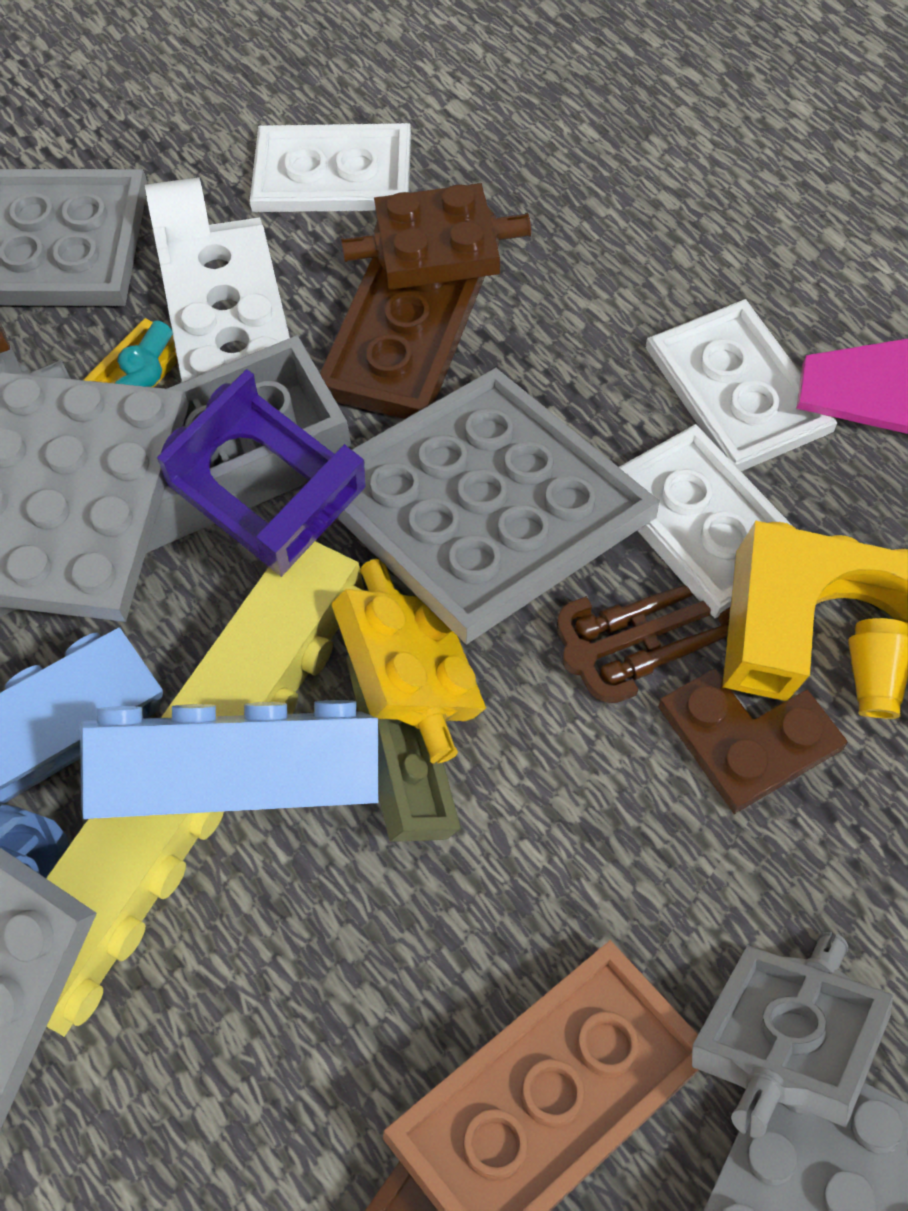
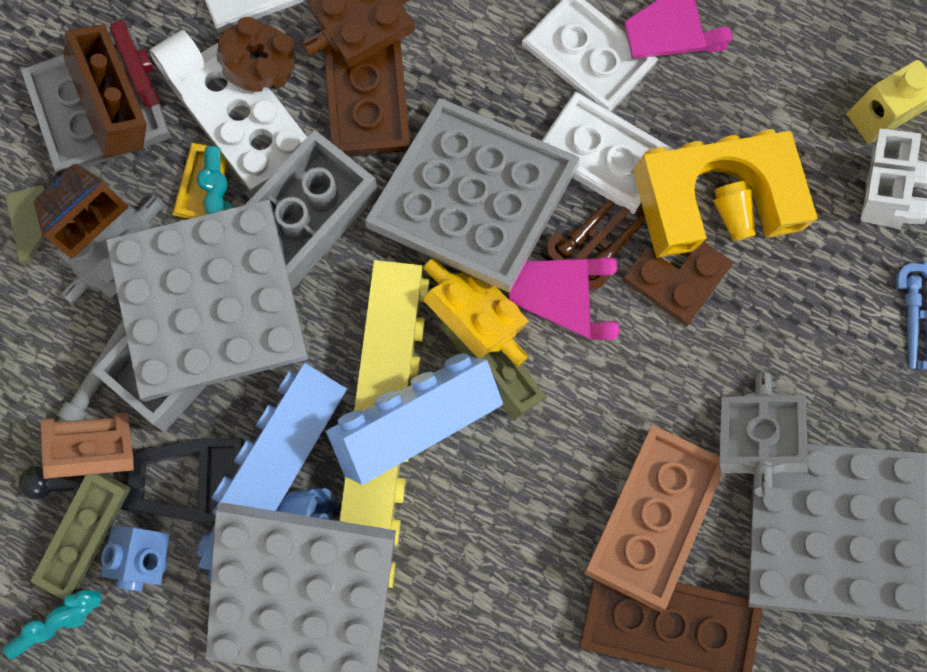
camera: 30 degrees left, 15 degrees up
(58, 208) = (104, 90): none -> reddish brown brick
(118, 196) = (136, 63): none -> dark red plate
(240, 412) = (325, 200): dark purple panel -> none
(279, 241) = (254, 37): none -> reddish brown plate
(552, 686) = (561, 293): none -> dark pink flag

